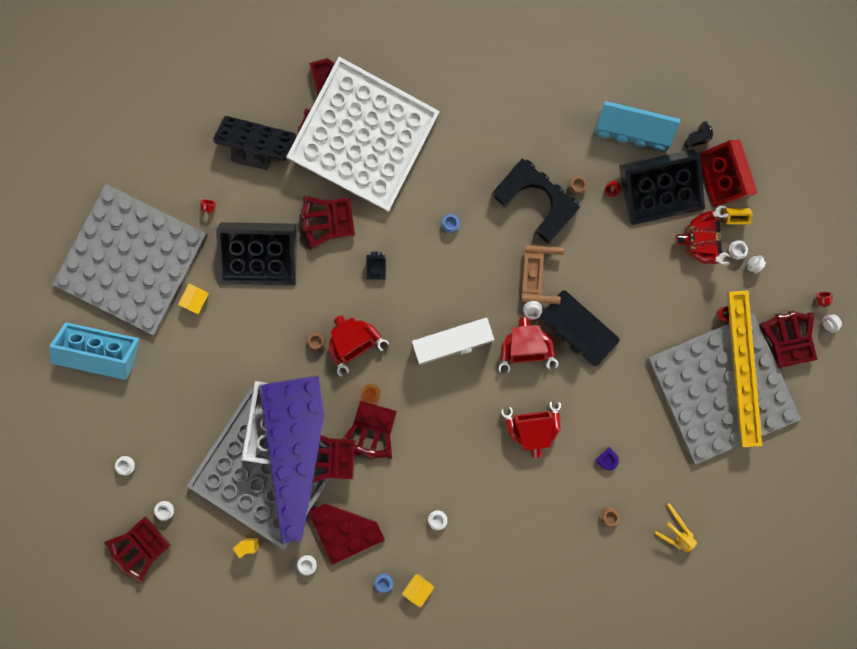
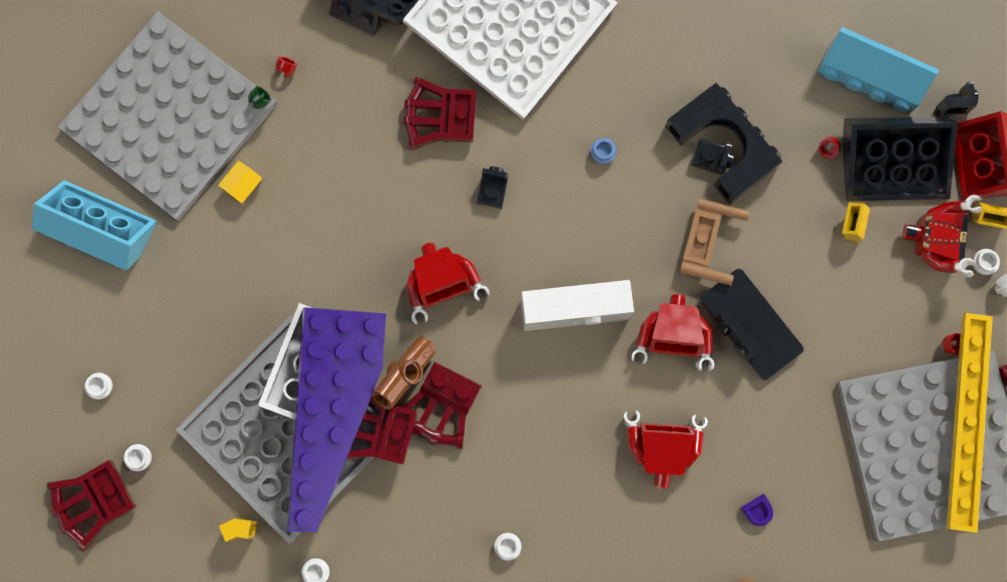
camera: 10 degrees right, 5 degrees down
(194, 235) = (259, 97): none -> dark green hinge
(257, 253) = (337, 139): black slope -> none
(316, 341) = (392, 271): medium nougat plate -> none
(340, 414) = (404, 373): none -> dark orange piece
(344, 532) = (376, 537): dark red plate -> none
(370, 393) = (451, 355): clear orange plate -> none
(529, 212) = (712, 157): none -> black bracket
(532, 309) = (692, 286): white plate -> none
(578, 185) = (783, 134): medium nougat plate -> none
(644, 239) = (863, 211): none -> yellow piece

